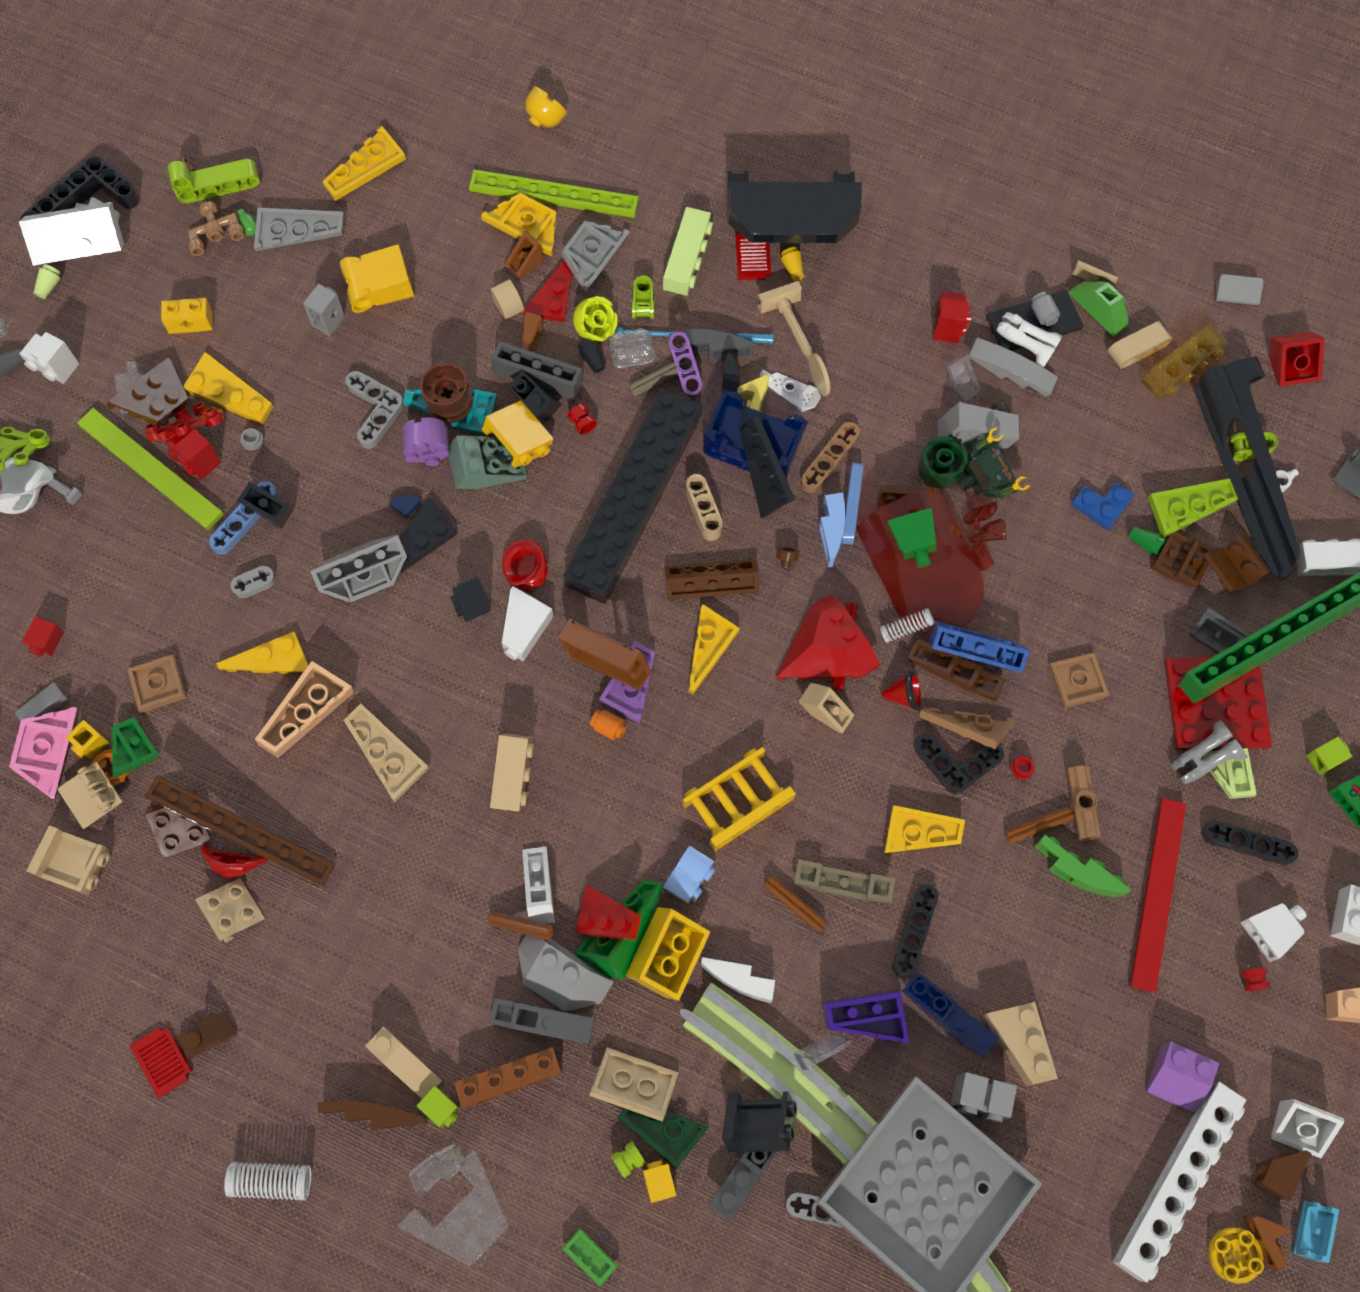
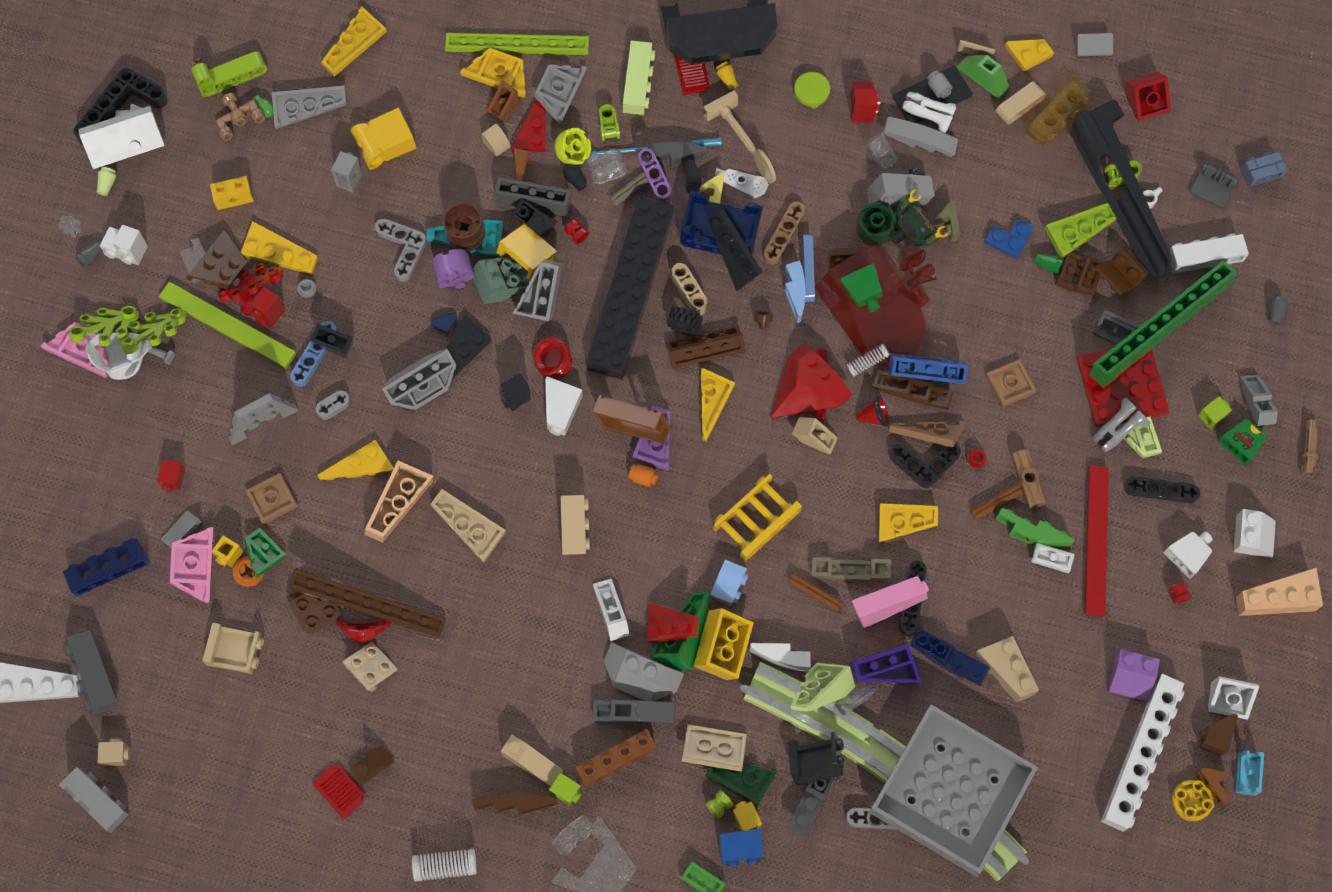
camera: 10 degrees left, 0 degrees up
(60, 461) = (153, 330): none -> lime plant
(90, 795) = (238, 594): tan hinge -> none
(155, 576) = (256, 412): none -> light grey wing
(520, 925) = (603, 641): dark orange axle -> none
(525, 484) = (541, 293): none -> light grey wedge
(644, 1222) = (740, 847): none -> blue slope
(691, 544) = (684, 320): none -> black tyre
(784, 1028) = (823, 686): none -> yellowish green wedge
(885, 931) = (889, 601): none -> bright pink slope
(891, 294) = (812, 89): none -> lime tile
(975, 1095) = (979, 715): light grey piece -> none
(1032, 469) = (949, 218): none -> olive slope
(1099, 908) = (1052, 558): none -> white plate
(1158, 288) = (1029, 52): none -> yellow wing

